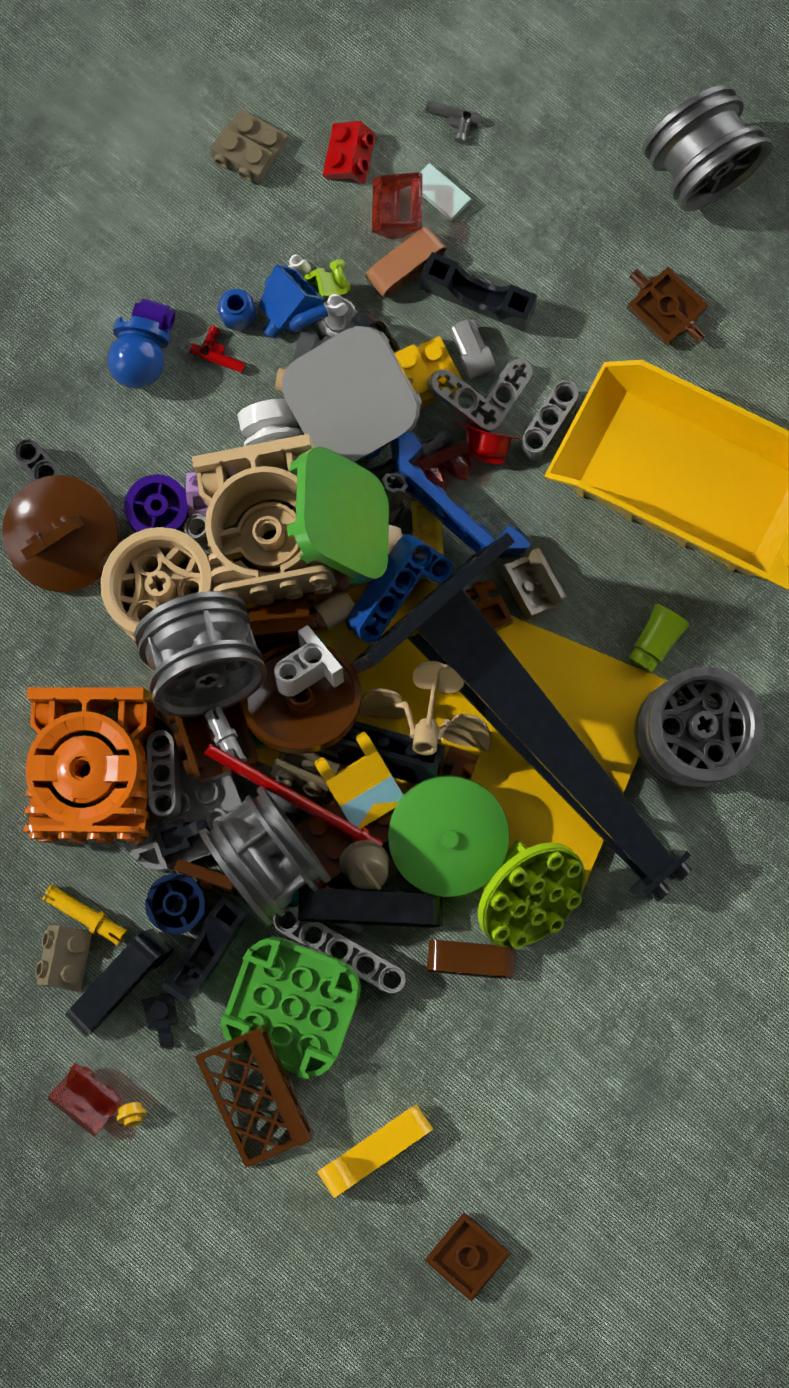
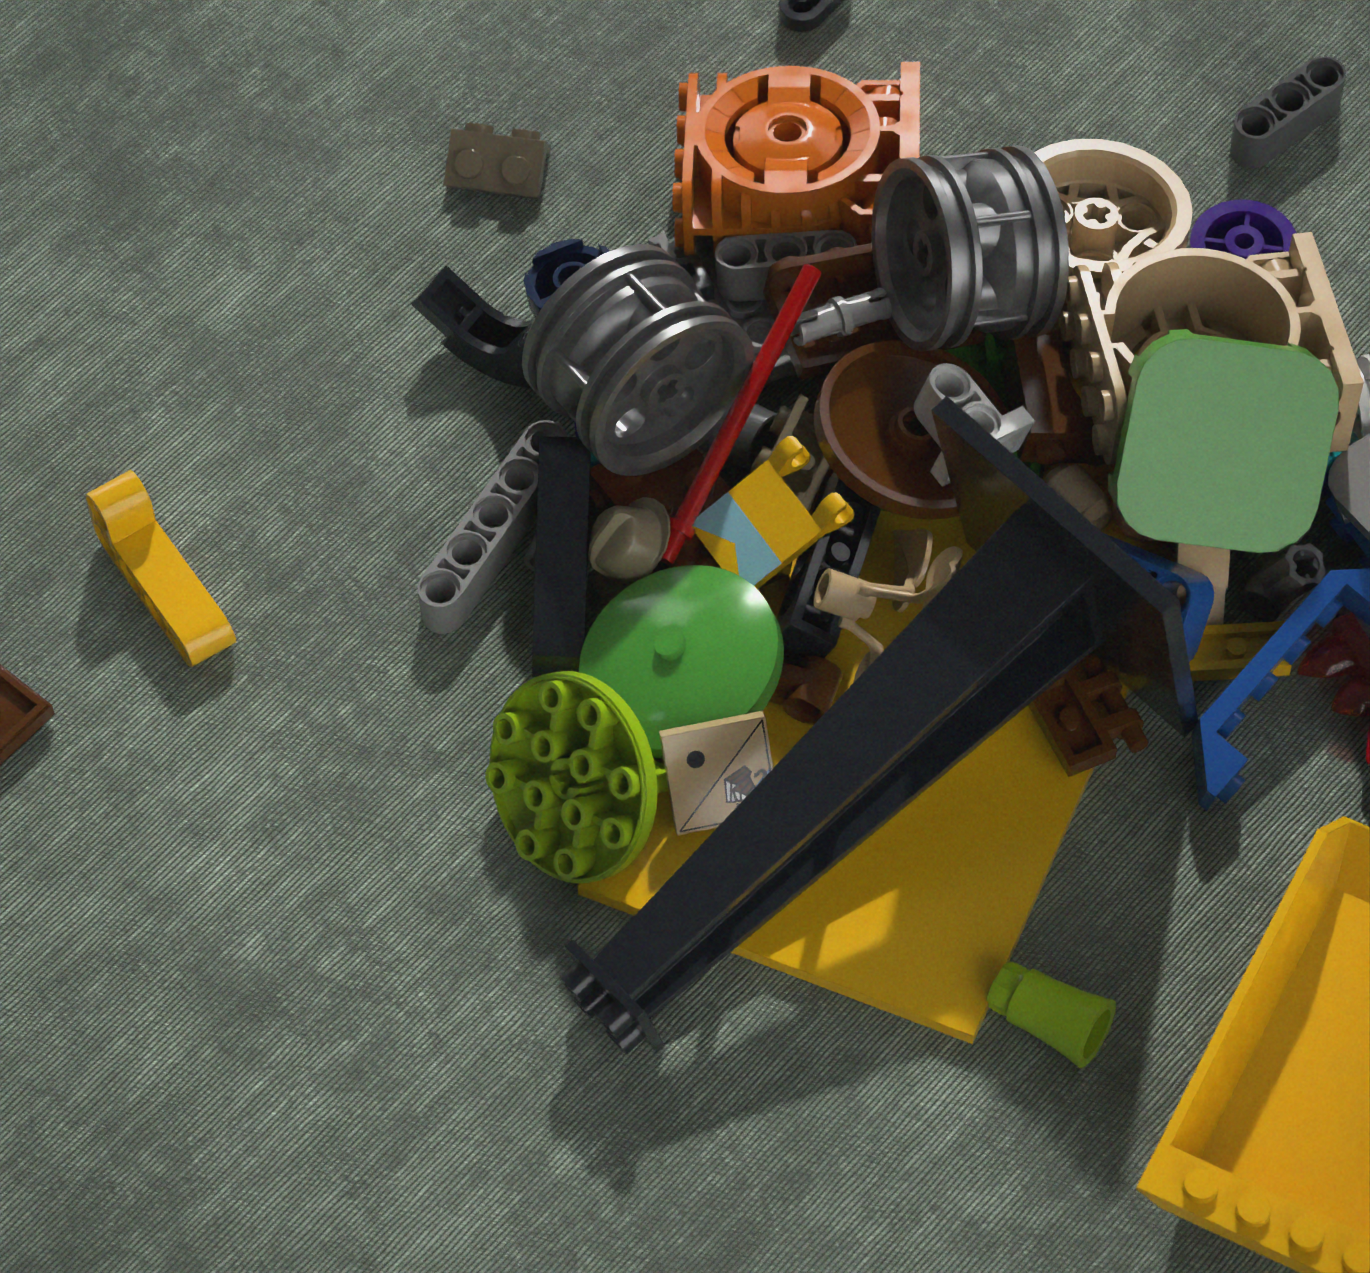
camera: 90 degrees right, 20 degrees down
(60, 532) = (1196, 109): reddish brown bracket -> none
(85, 1099) = (270, 191): clear red bracket -> none
(95, 921) = (554, 199): yellow pin -> none
(116, 982) = (461, 223): black beam -> none
(131, 1114) = (246, 253): yellow plate -> none
(160, 1014) = (394, 292): black plate -> none
(278, 1084) = (275, 435): reddish brown fence -> none
(300, 999) = (403, 453): bright green tile -> none
(471, 959) = (473, 702): reddish brown beam -> none
(522, 813) = (714, 768): none -> tan tile
(533, 584) = (1141, 809): dark tan bracket -> none
(735, 705) = (875, 1048): flat silver wheel -> none

